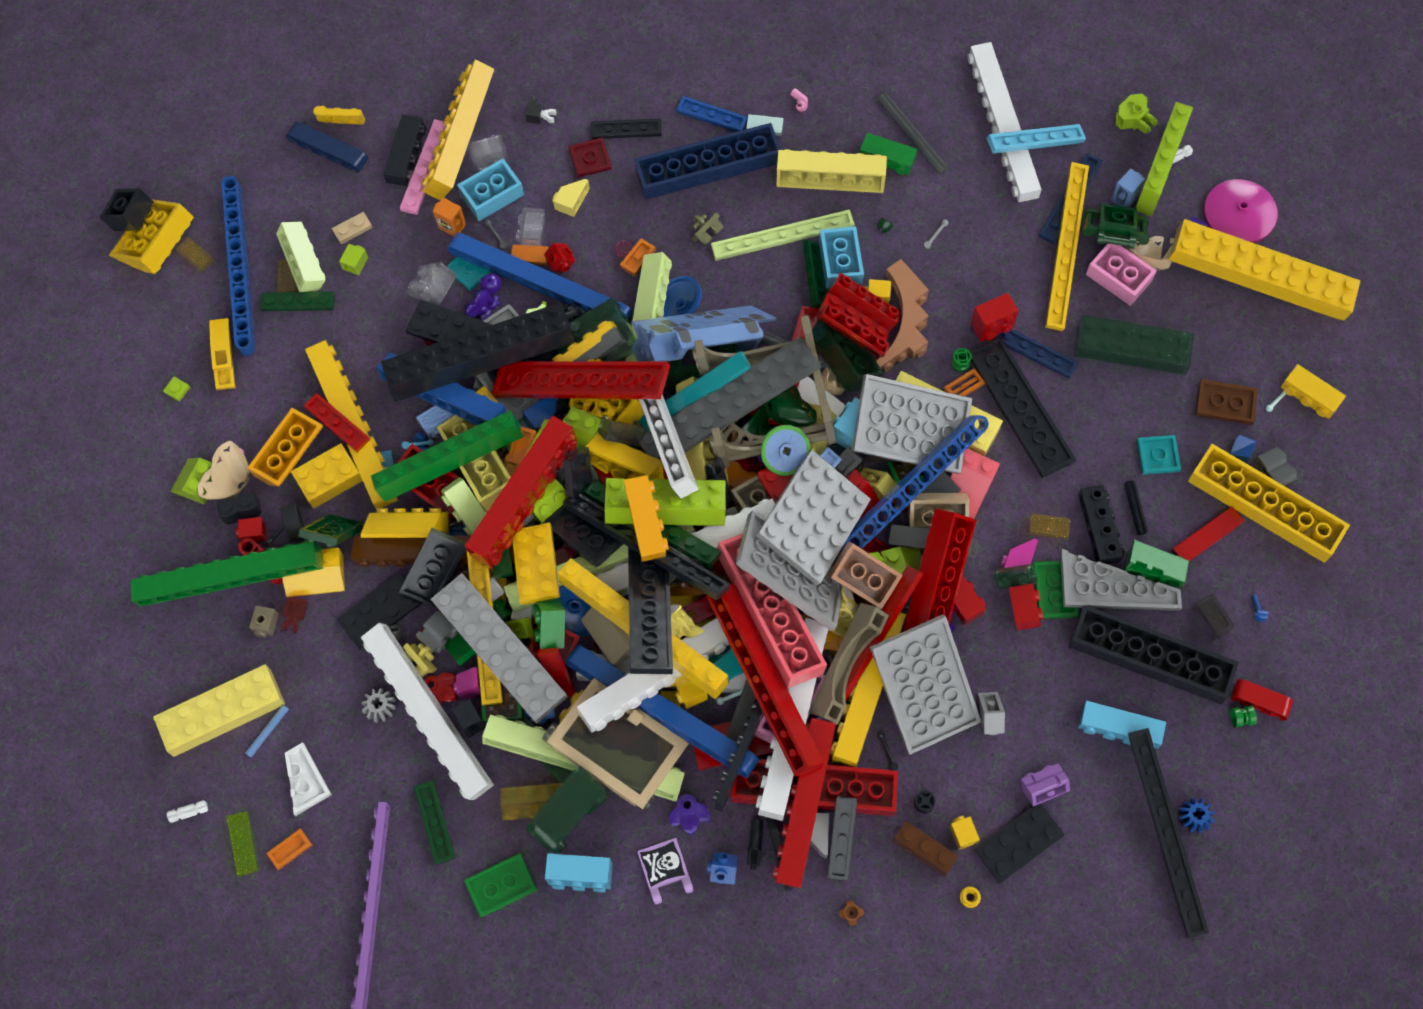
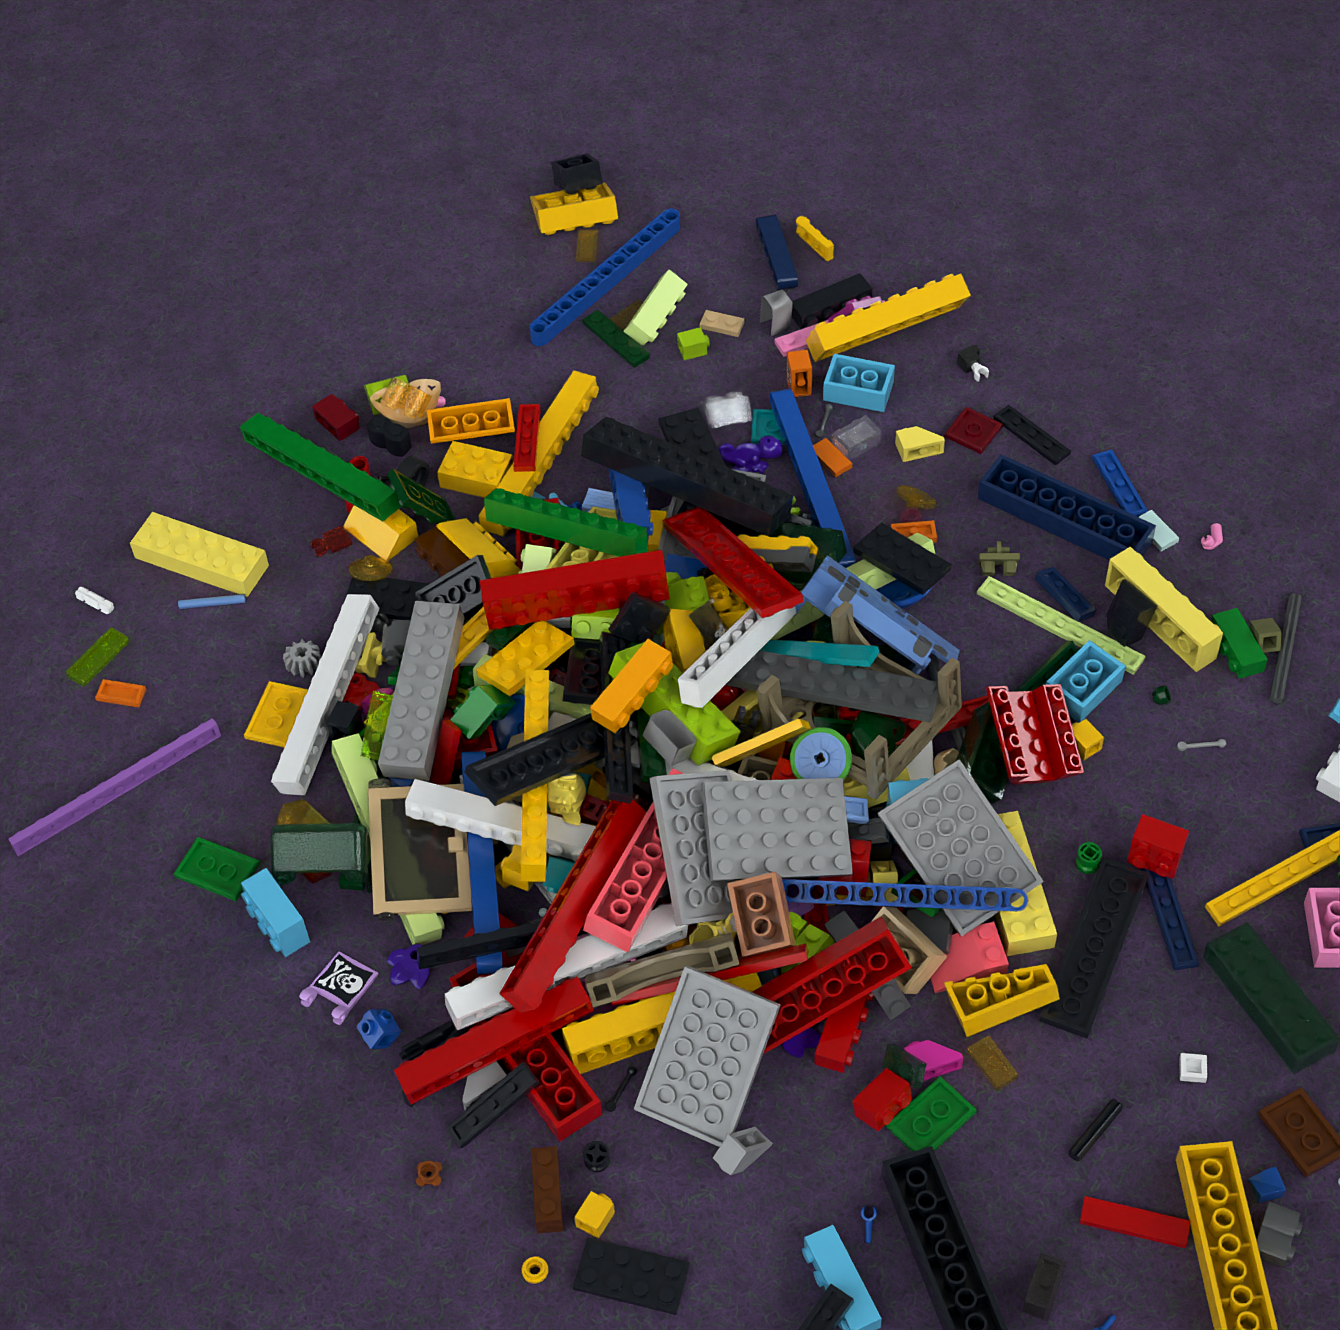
camera: 50 degrees right, 15 degrees down
(176, 389) = (456, 322): lime plate -> none
(185, 530) = (336, 417): none -> dark red brick
(222, 354) = (513, 323): yellow slope -> none
(223, 472) = (406, 397): none -> clear yellow brick
(251, 528) = (380, 458): red brick -> none
(263, 621) = (305, 526): dark tan brick -> none
(305, 779) = (191, 659): white wing -> none
(343, 605) = (370, 568): none -> clear yellow dish
(384, 181) = (779, 309): none -> light grey piece
(408, 755) = (275, 714): none -> yellow tile
(433, 142) = (854, 304): none -> magenta wing
(434, 822) = (231, 776): dark green plate -> none
(487, 151) = (895, 353): clear brick -> none
(498, 698) = (376, 724): none -> clear neon green tile
(559, 257) = (848, 476): red brick -> none
(613, 233) = (915, 497): none -> clear yellow dish
(662, 280) = (902, 558): none -> black plate
(688, 520) = (668, 736): none -> light grey piece
(746, 474) = (761, 742): none -> yellow tile
(765, 213) = (1065, 594): none -> dark blue plate
(816, 192) = (1129, 614): none -> black slope
(898, 133) = (1267, 634): none -> olive brick
(911, 296) = (1086, 786): nougat arch -> none
(947, 388) = (1068, 887): orange tile -> none
(1013, 492) = (1000, 997): none -> yellow wedge
(1045, 784) = (710, 1252): medium lavender brick -> none
(1092, 677) = (868, 1224): none -> blue hand
(1100, 524) = (1040, 1108): black brick -> none
(1112, 588) = (978, 1160): light grey wing -> none
(1141, 423) = (1193, 1067): none -> white plate
(1156, 564) = (1046, 1187): wedge -> none
(1158, 454) = (1176, 1110): teal tile -> none

